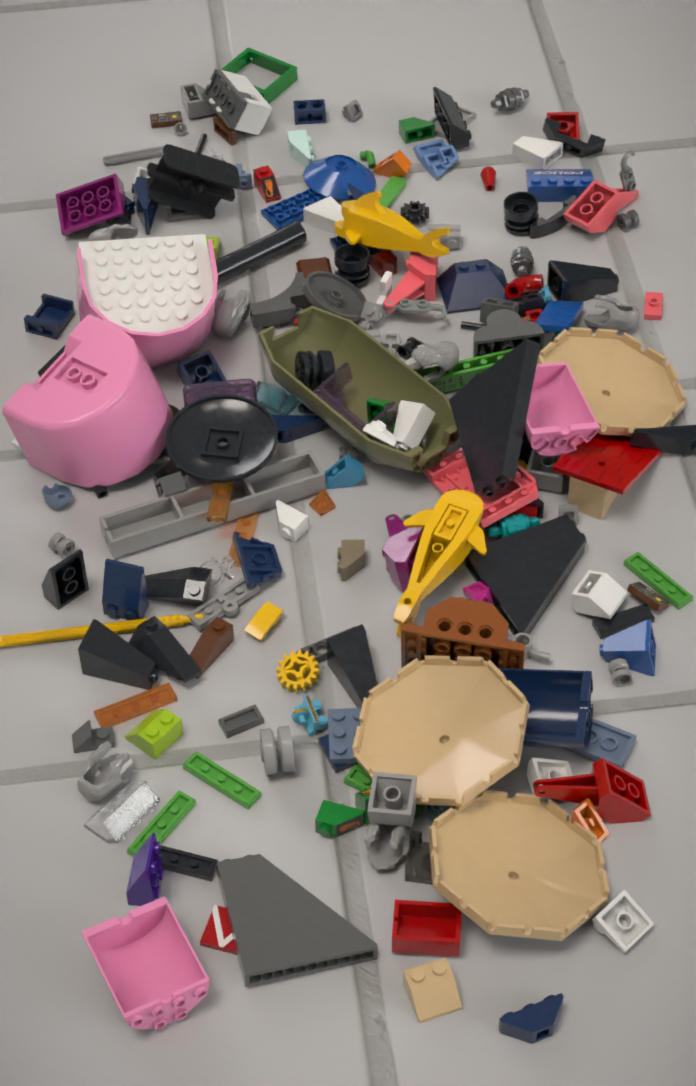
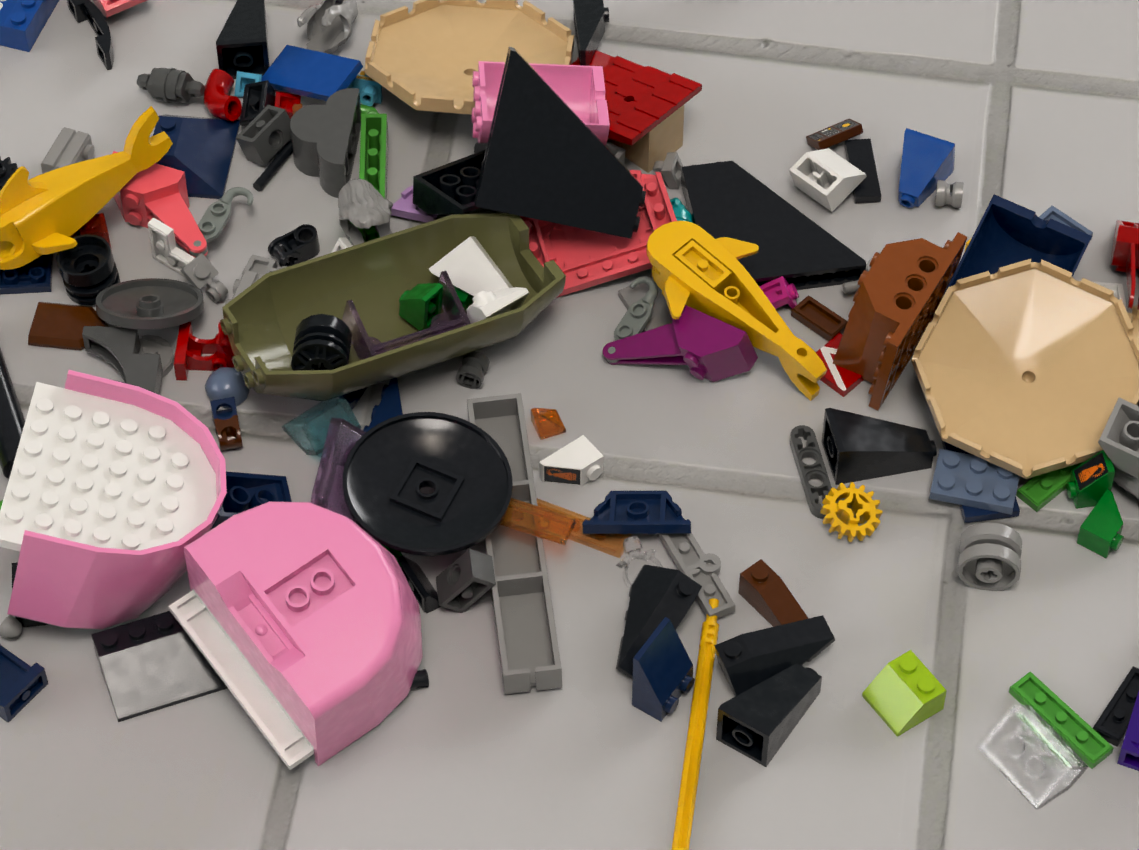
camera: 75 degrees left, 5 degrees up
(57, 495) = (414, 731): sand blue hair -> none
(59, 543) = (518, 744): light grey wheel -> none
(66, 580) = (606, 741): black slope -> none
(89, 739) = (893, 772): dark grey slope -> none
(103, 776) = (972, 758): light grey hair -> none
(135, 705) = (848, 711): clear orange tile -> none
(222, 780) = (1001, 638): bright green tile -> none
(241, 721) = (908, 597): dark grey tile -> none
(255, 359) = (226, 423): none -> reddish brown leg
(263, 621) = (749, 530): yellow slope -> none
(307, 715) = (927, 517): medium azure hips -> none
(344, 473) = (507, 376): dark azure slope -> none
(352, 558) = (667, 411): dark tan slope -> none
(520, 212) = (74, 56): black wheel -> none
(658, 580) = (806, 120): bright green tile -> none

